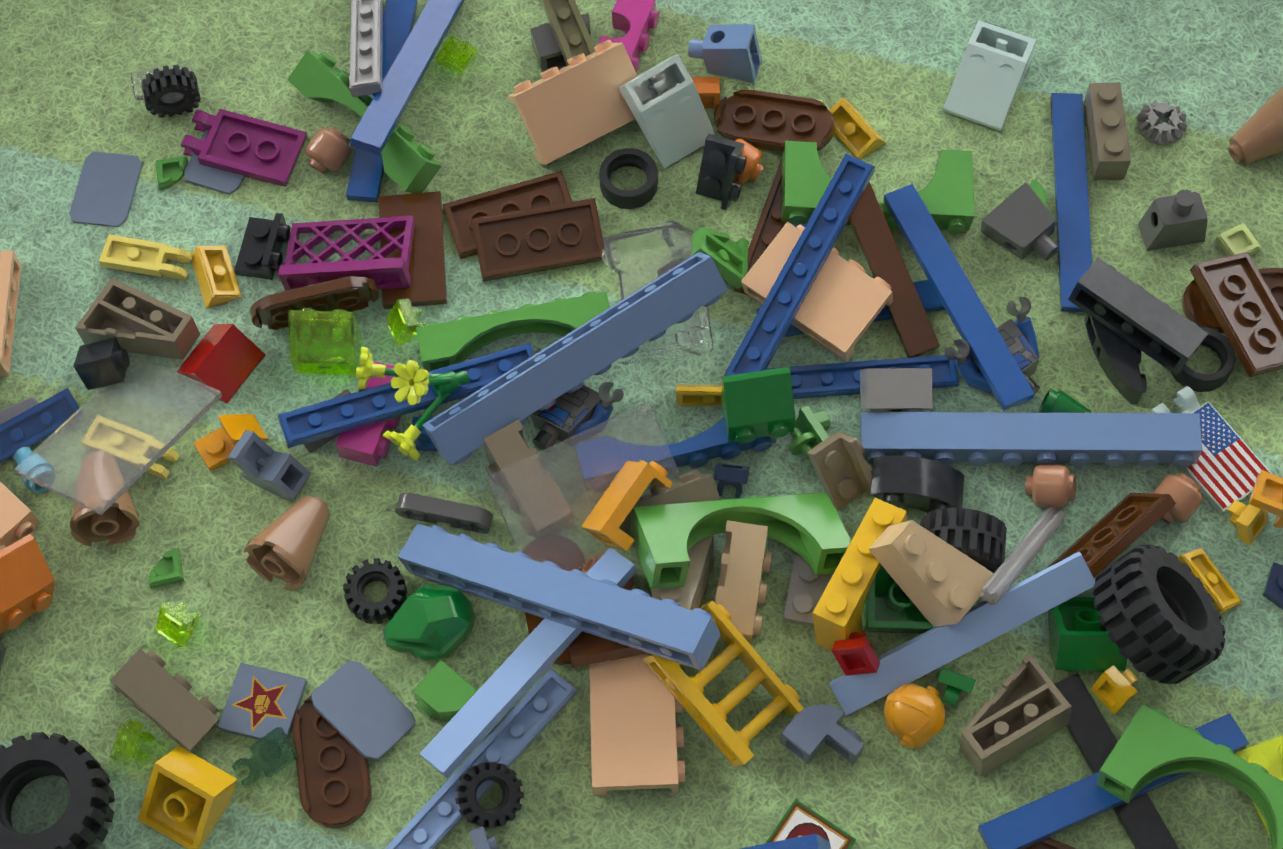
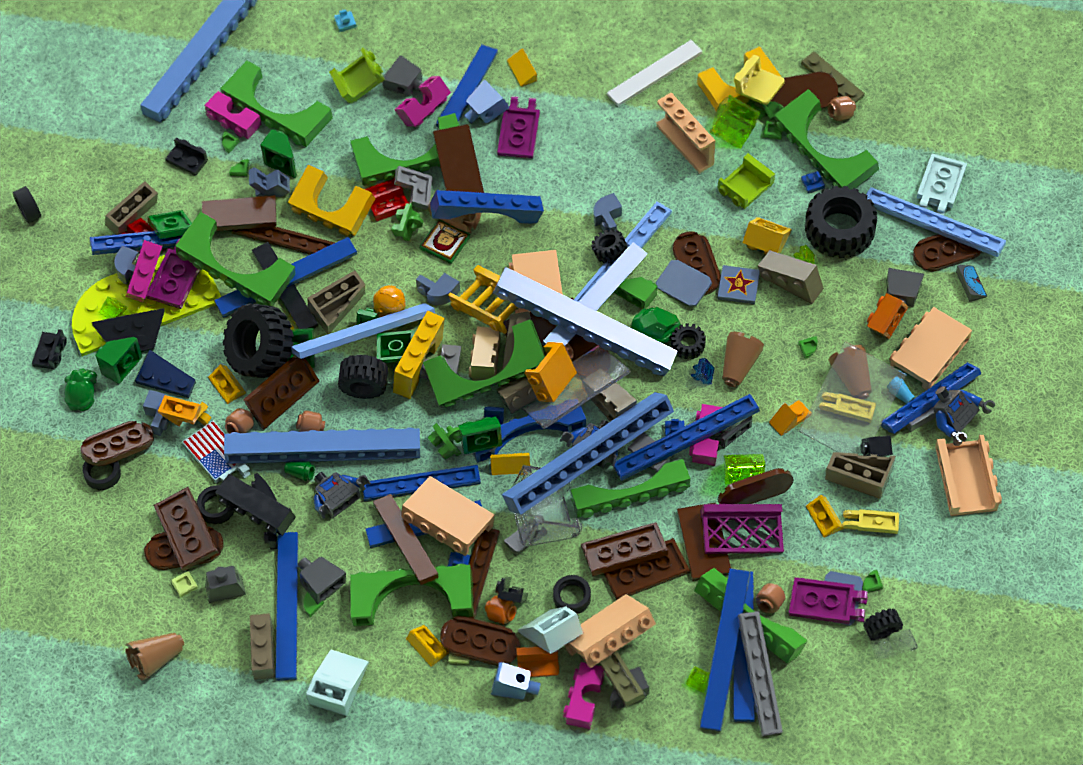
camera: 175 degrees right, 5 degrees down
(105, 189) = (911, 569): sand blue piece -> none
(176, 623) = (795, 316): clear neon green tile -> none
(222, 360) = (809, 461): red slope -> none
(262, 247) = (800, 534): black bracket -> none
(268, 468) = (764, 398): sand blue brick -> none
(269, 755) = (728, 258): clear green plate -> none
(357, 530) = (704, 371): none -> clear blue tile
(403, 321) = (700, 490): clear neon green tile -> none
(411, 385) = (683, 409): neon yellow plant -> none
(433, 510) = (660, 383): dark grey beam -> none
(728, 255) = (507, 537): bright green wing -> none
(802, 267) = (457, 516): blue tile -> none
(841, 468) = (429, 417): dark tan bracket -> none
(856, 654) = (418, 314): red tile -> none
(896, 389) = (399, 464): light grey brick -> none
(916, 483) = (387, 413): black brick -> none
(930, 572) = (380, 342): tan wedge -> none
(958, 297) = (363, 518): blue tile -> none
(1021, 555) = (330, 370): light grey axle -> none
(1166, 132) = (224, 672): light grey gear -> none

